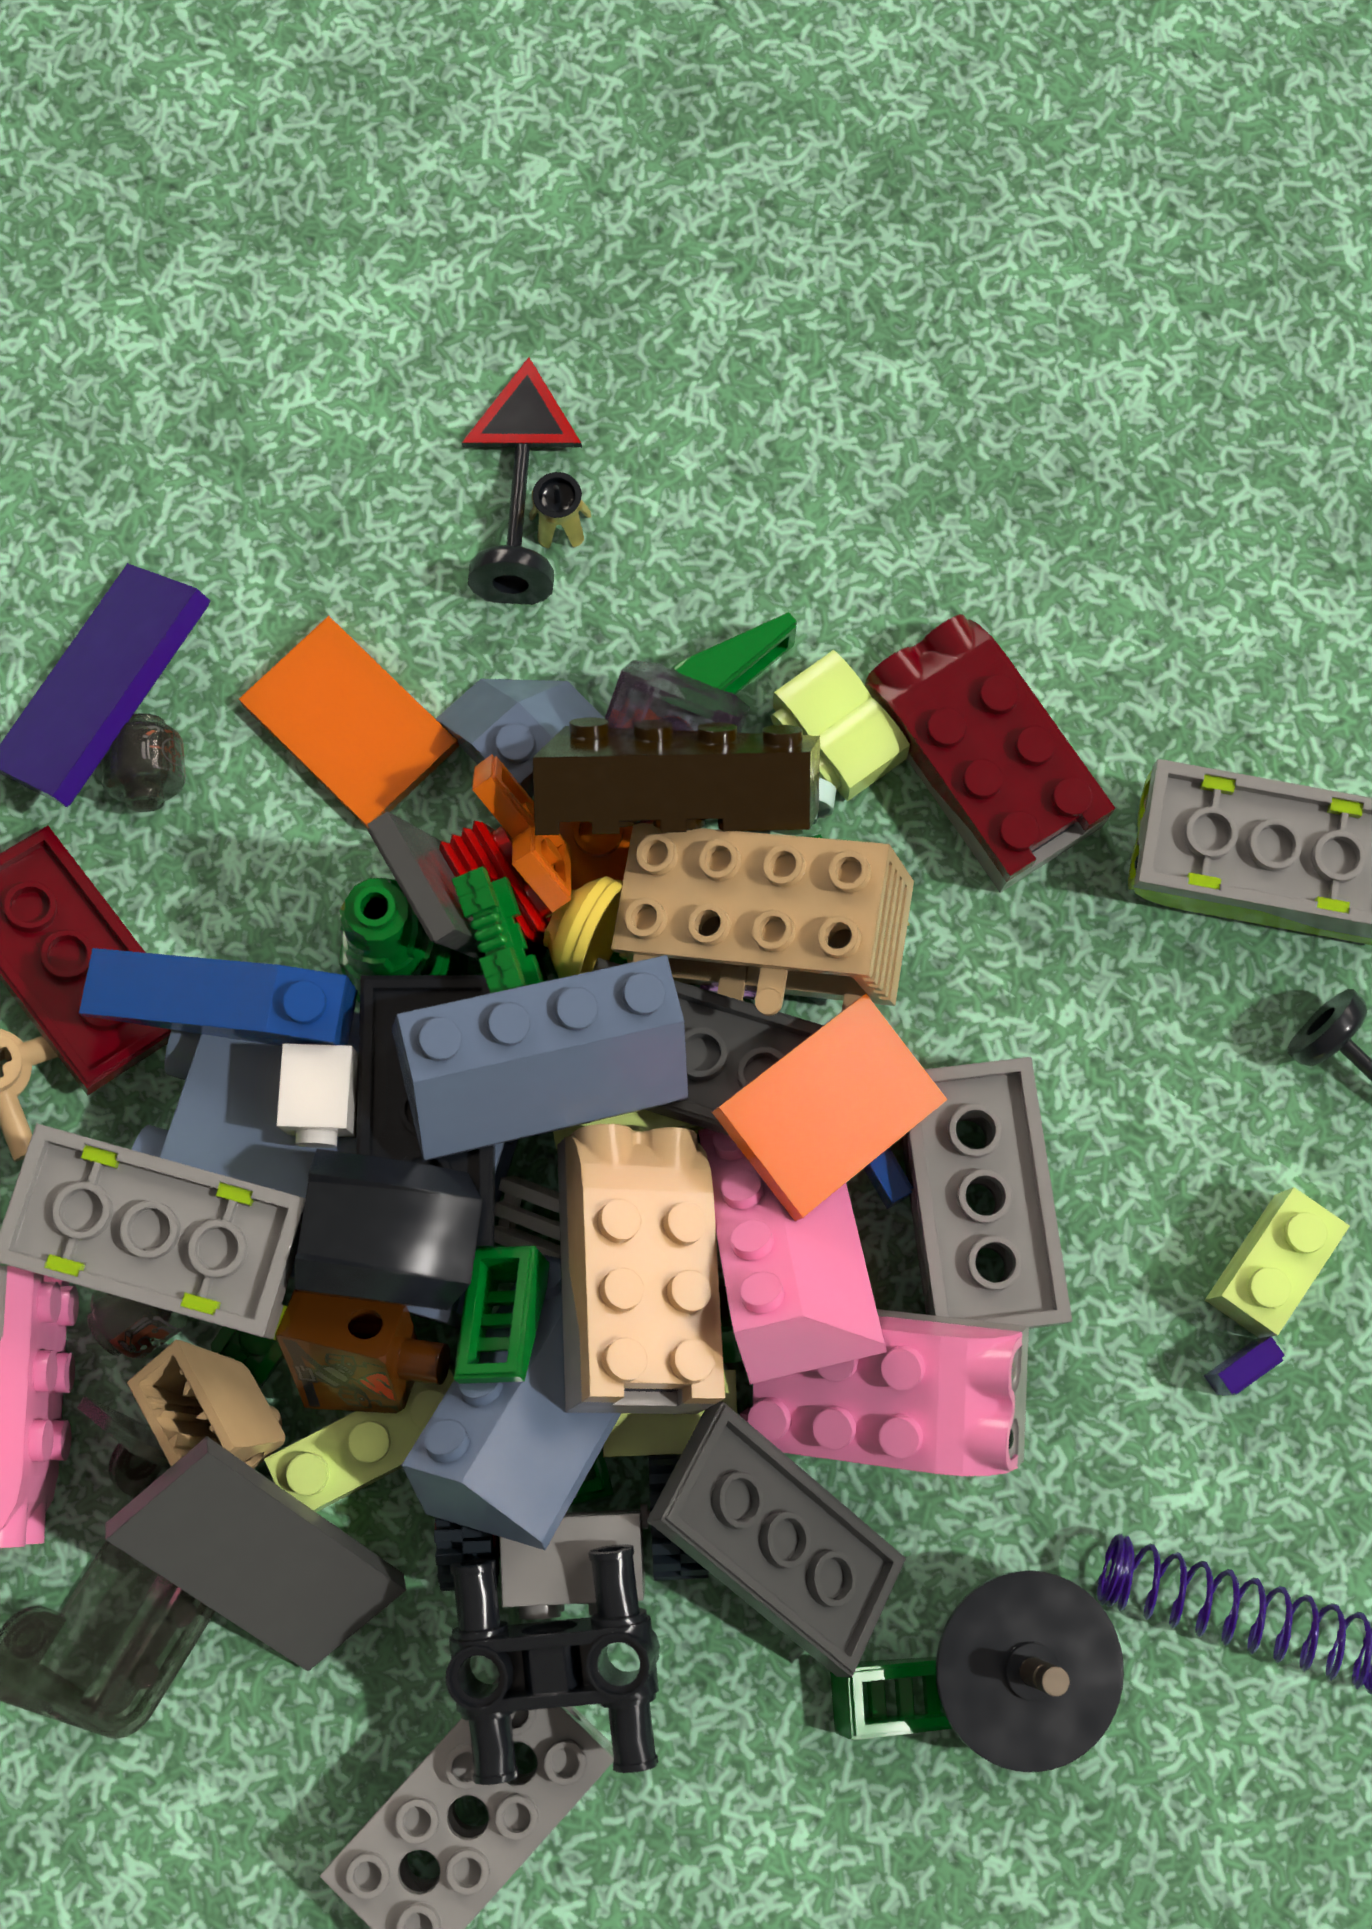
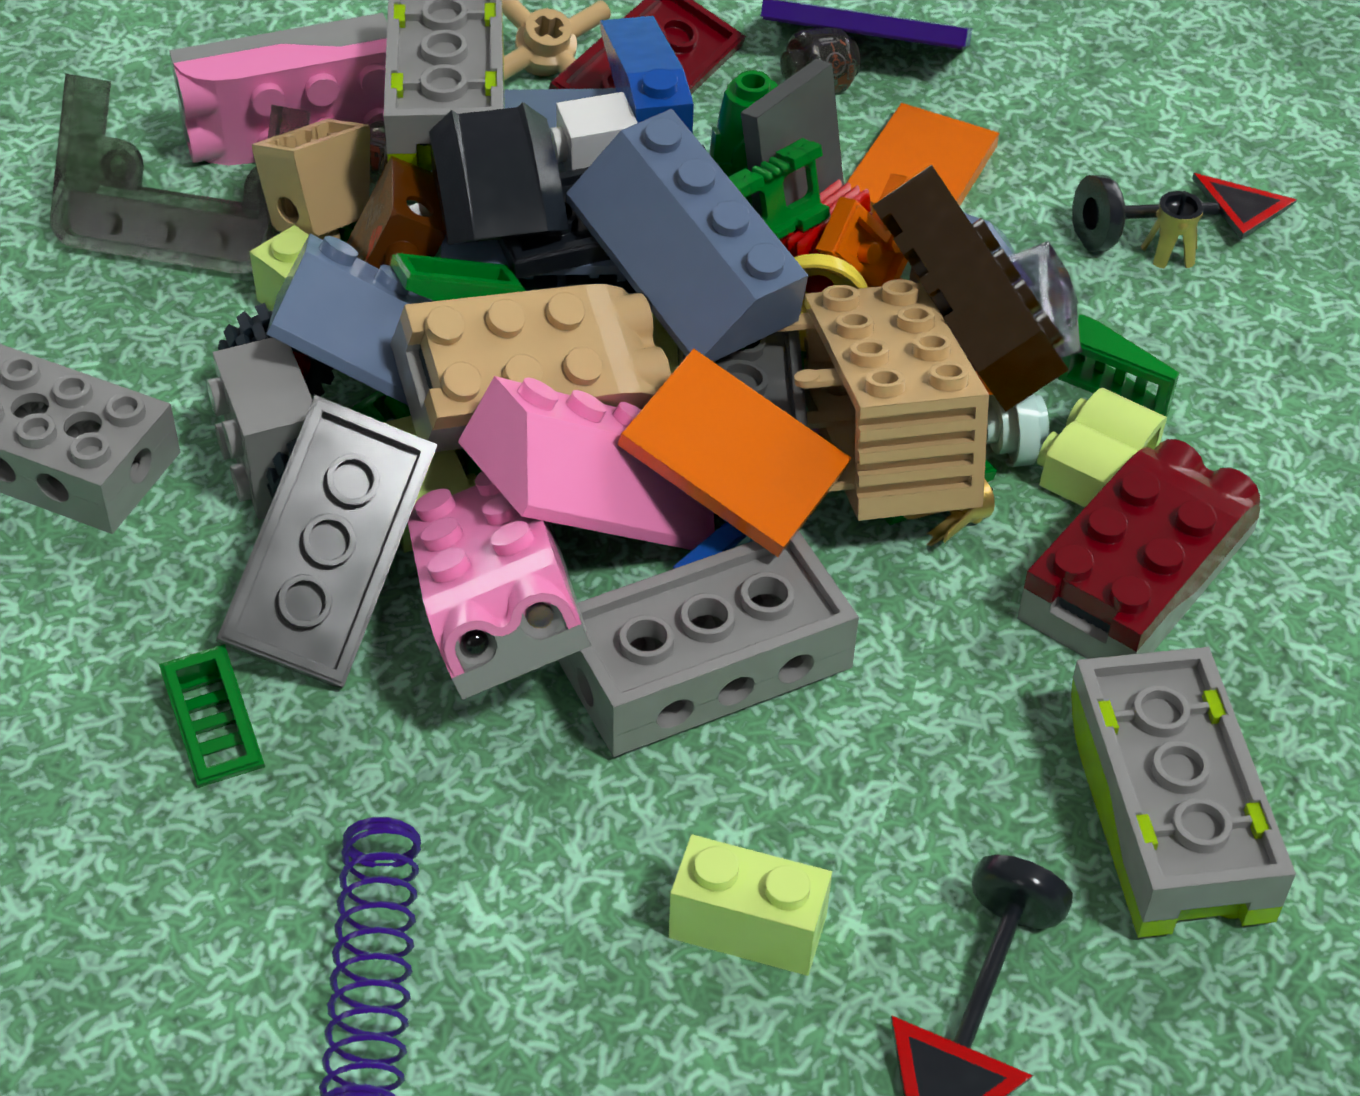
camera: 70 degrees right, 30 degrees down
(255, 1554) = (213, 223): dark grey tile -> none
(553, 1664) = (183, 416): black piece -> none
(1029, 1671) = (259, 767): black piece -> none
(1245, 1366) = (630, 907): dark purple tile -> none

